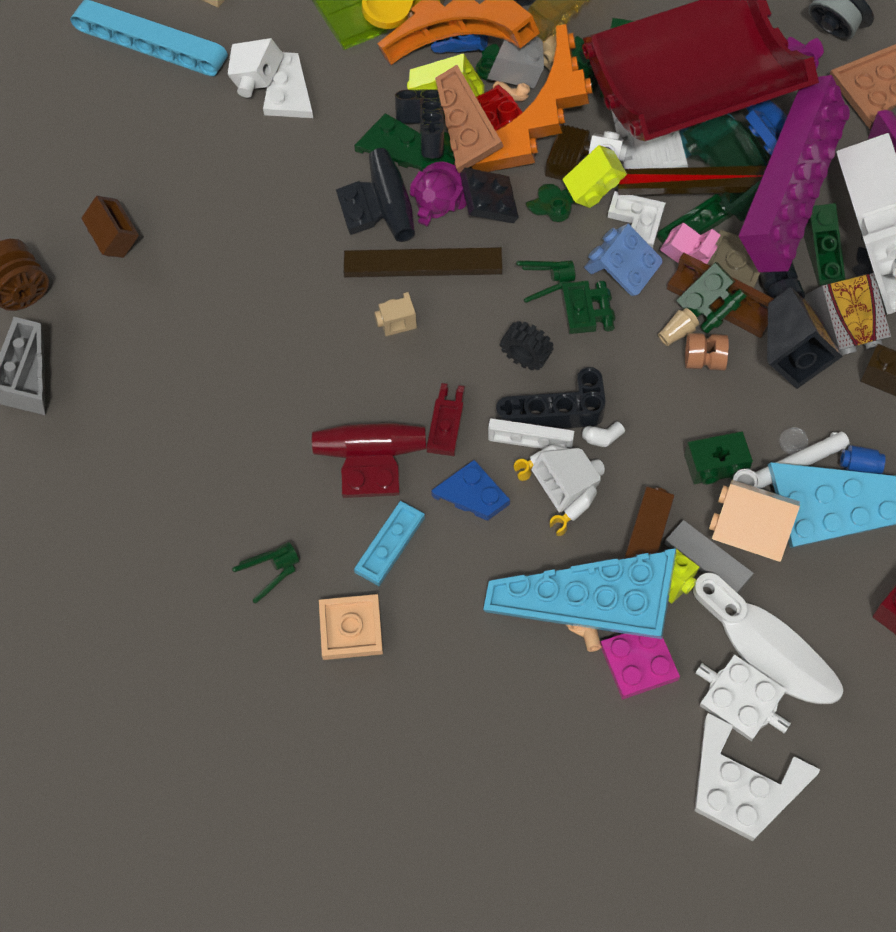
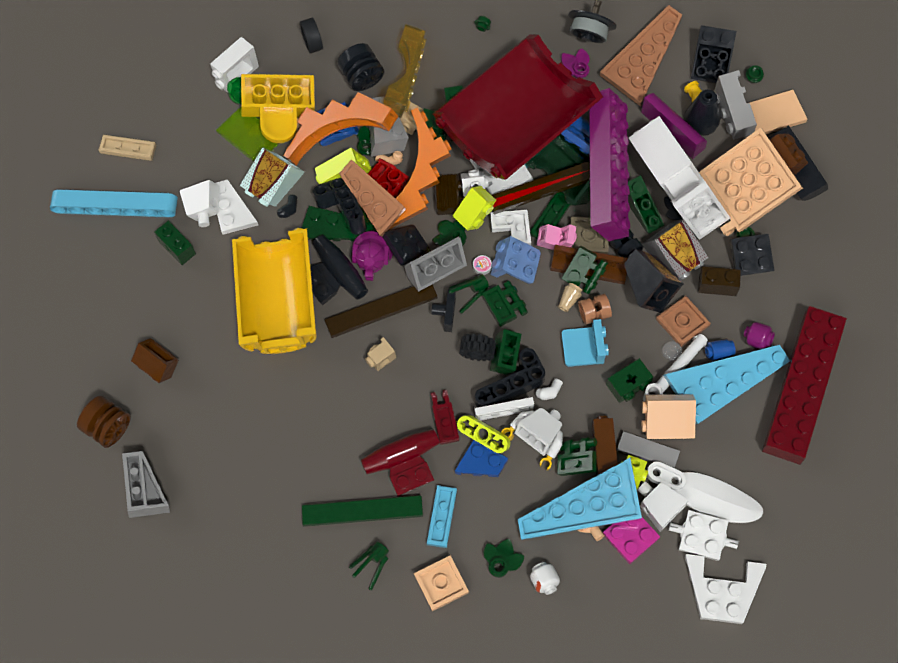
camera: 20 degrees left, 5 degrees up
(199, 102) = (175, 243): none -> dark green brick
(288, 499) = (362, 511): none -> dark green tile
(289, 196) = (274, 293): none -> yellow cylinder
(351, 65) = (270, 177): none -> slope
(359, 109) = (289, 209): none -> black arm
(450, 623) = (504, 556): none -> dark green plate
(493, 671) = (544, 578): none -> white head
(501, 460) = (491, 431): none -> neon yellow beam
(506, 290) = (446, 310): none -> black tile
(515, 225) = (436, 264): none -> light grey slope
(562, 363) = (506, 352): none -> dark green brick
(577, 251) = (482, 265): none -> tile
(603, 536) = (580, 462): none -> dark green plate
(674, 393) = (585, 345): none -> medium azure bracket
(699, 633) = (661, 504): none -> white torso
(824, 409) = (683, 321): none -> nougat tile

